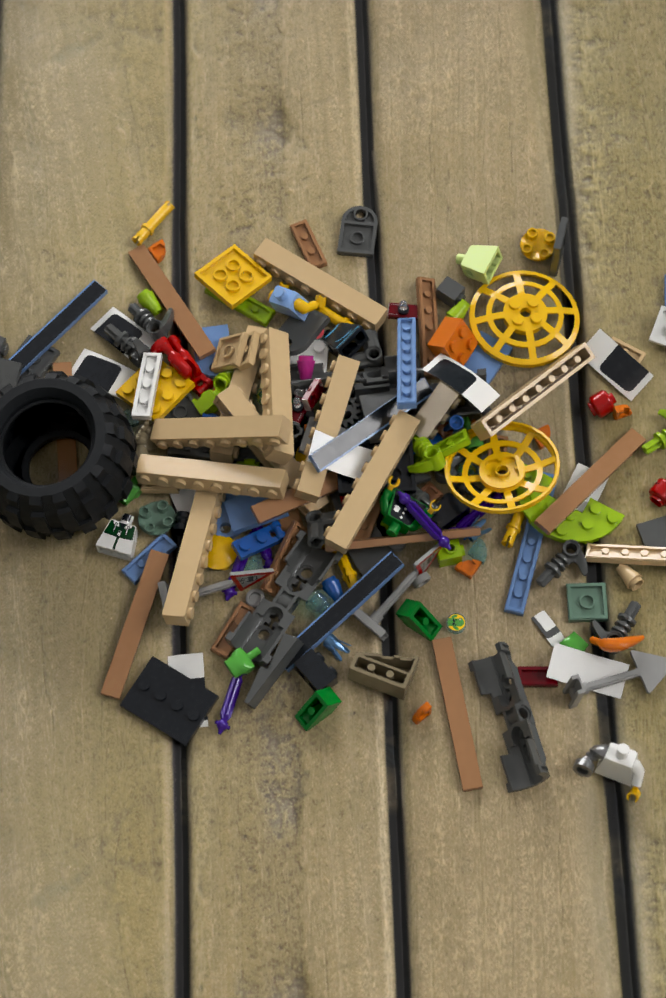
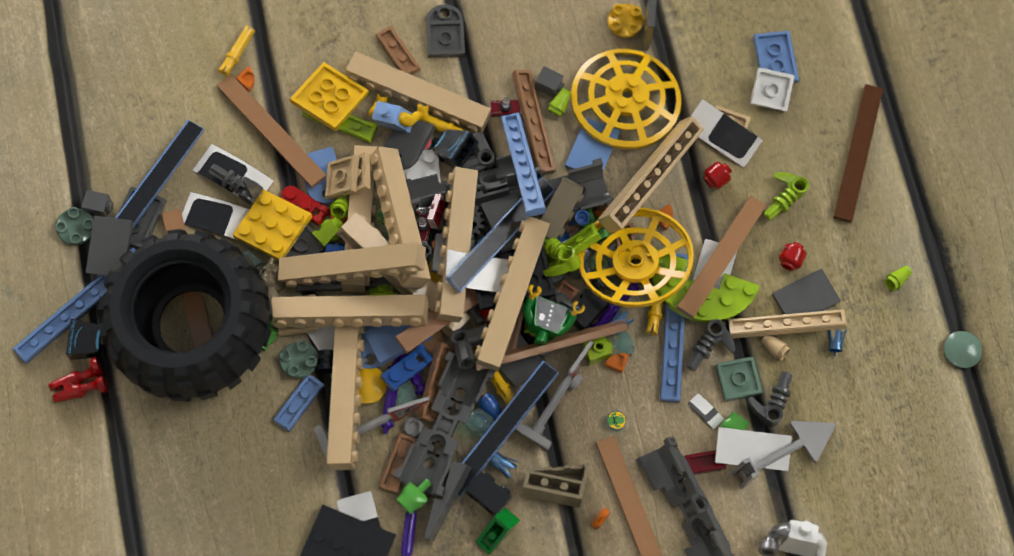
camera: 20 degrees left, 5 degrees up
(119, 538) = (265, 387): white torso -> none
(134, 625) = (298, 474): medium nougat tile -> none
(147, 386) = (265, 225): white plate -> none
(149, 301) = (248, 134): lime cone -> none
(149, 323) = (255, 158): dark grey piece -> none
(177, 356) = (289, 189): red piece -> none
(305, 366) = (421, 182): dark pink cone -> none
(418, 619) = (579, 422): green slope -> none
(424, 520) = (570, 324): dark purple wheel -> none
(453, 340) = (562, 136): orange brick -> none
(463, 381) = (581, 174): sticker -> none
(480, 262) = (573, 47): yellowish green torso -> none
(616, 644) = (776, 420): orange piece -> none
(621, 411) = (737, 180): orange tile -> none

